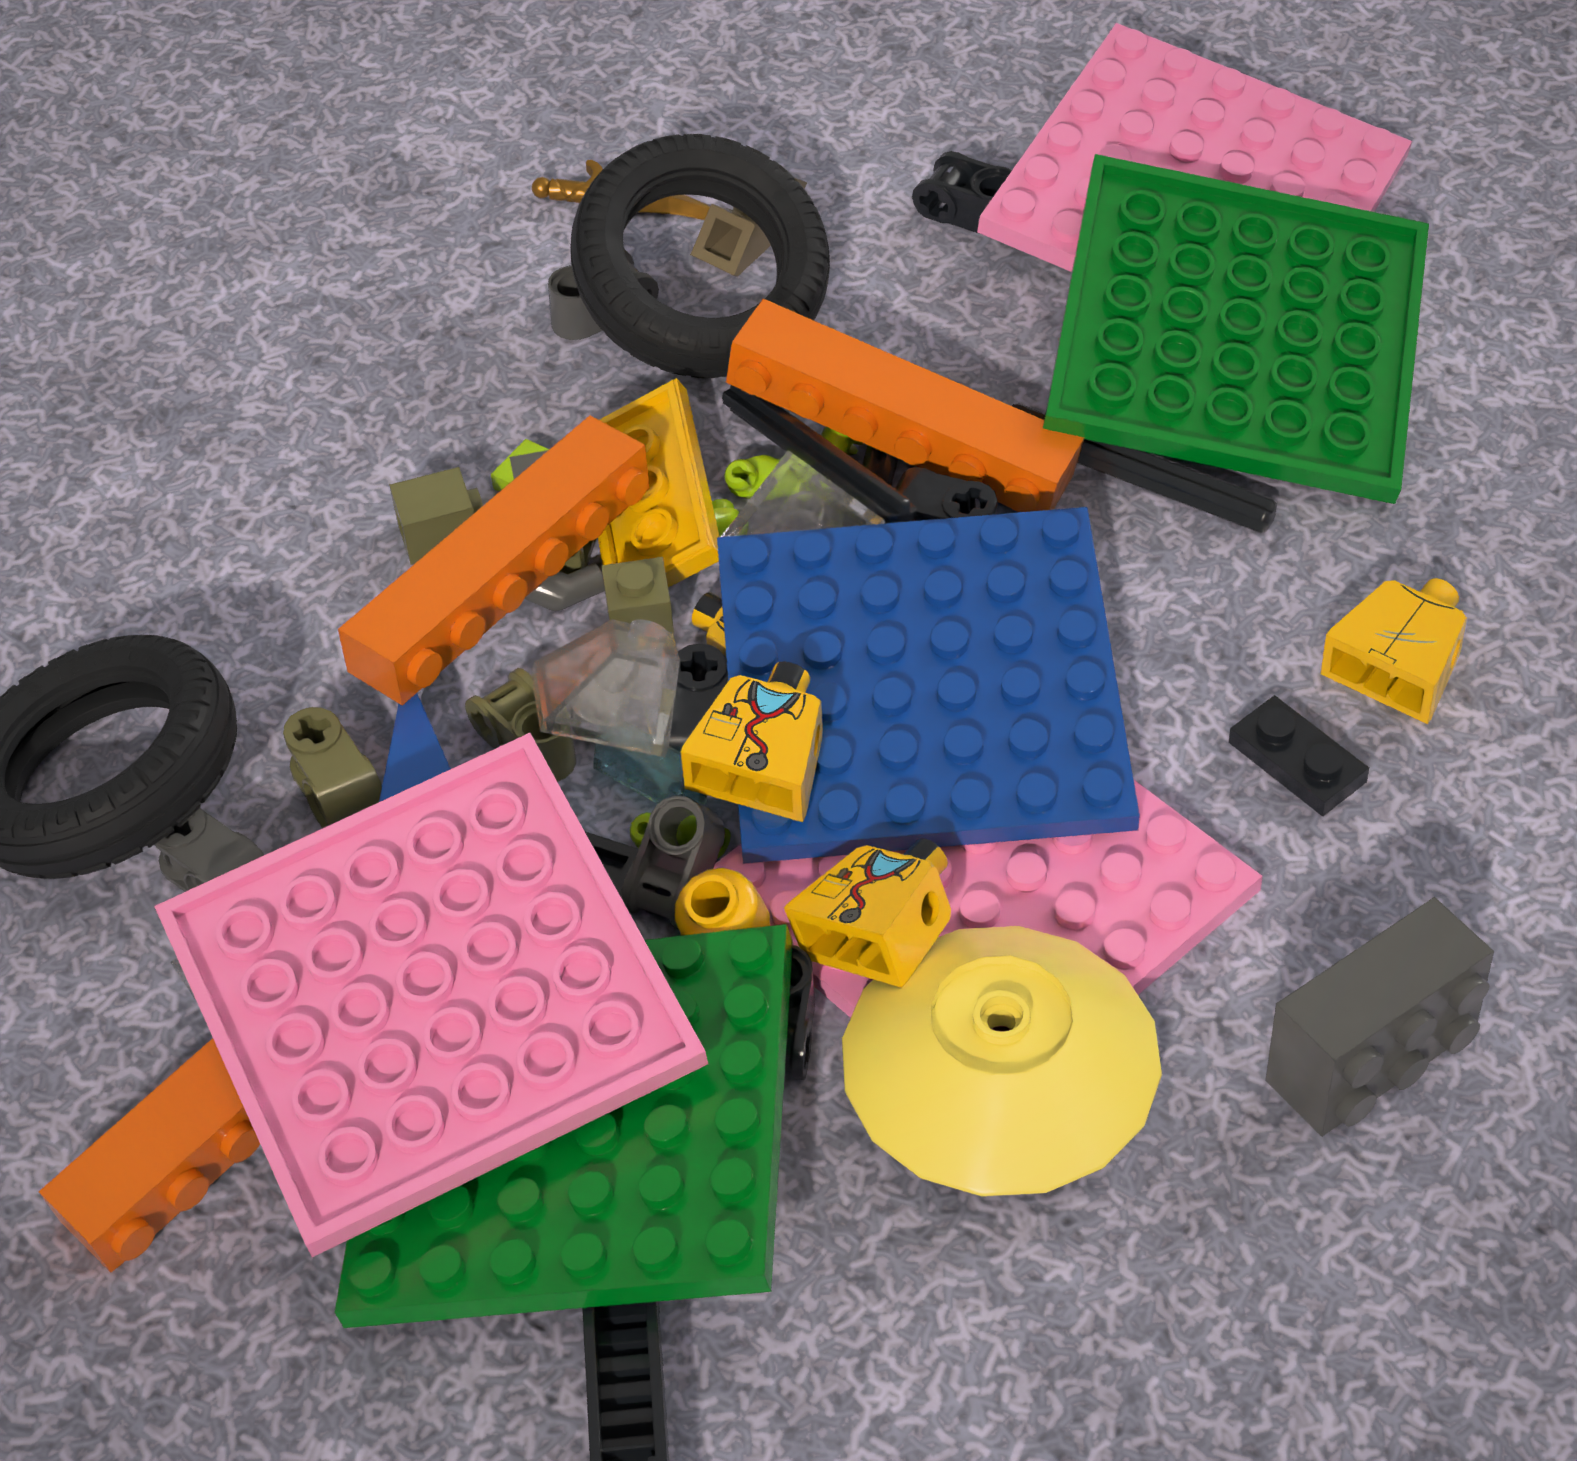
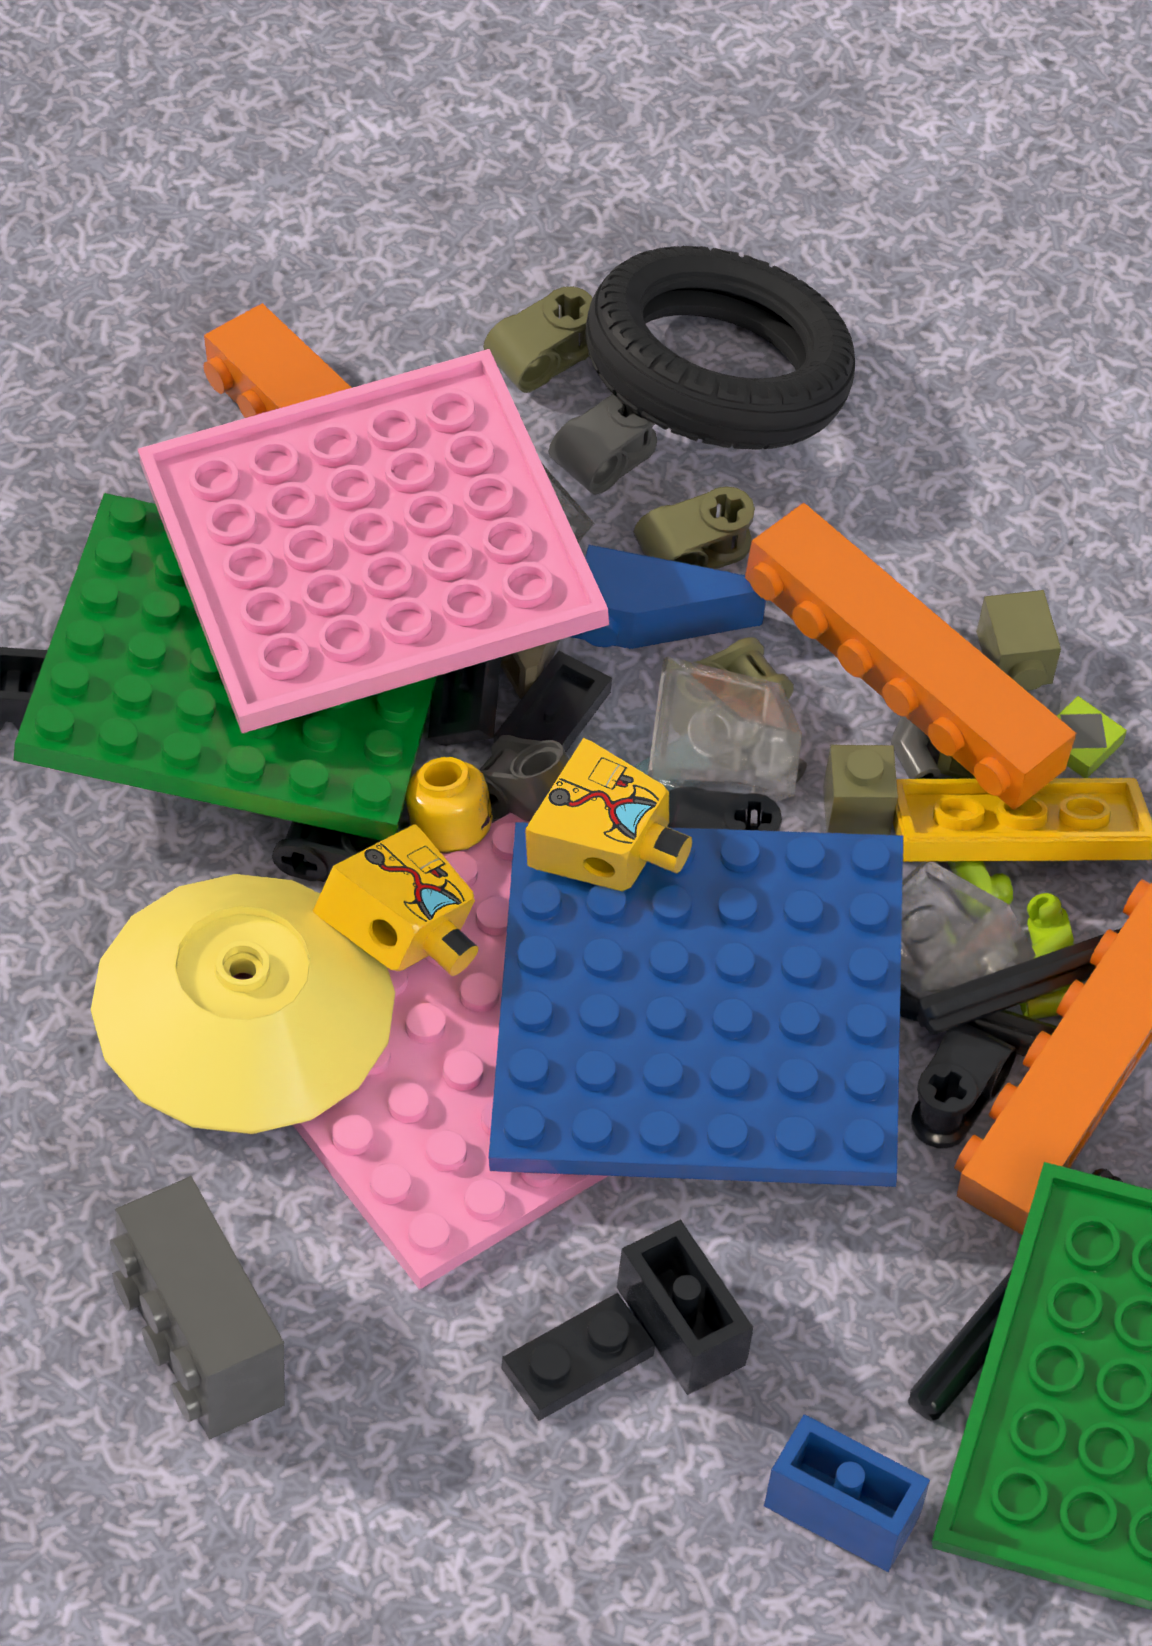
camera: 90 degrees right, 5 degrees up
(63, 933) = (537, 343): none -> olive piece
(1244, 662) = (684, 1307): none -> black brick
(1388, 530) = (846, 1492): none -> blue brick
(1399, 646) = (697, 1480): yellow torso -> none

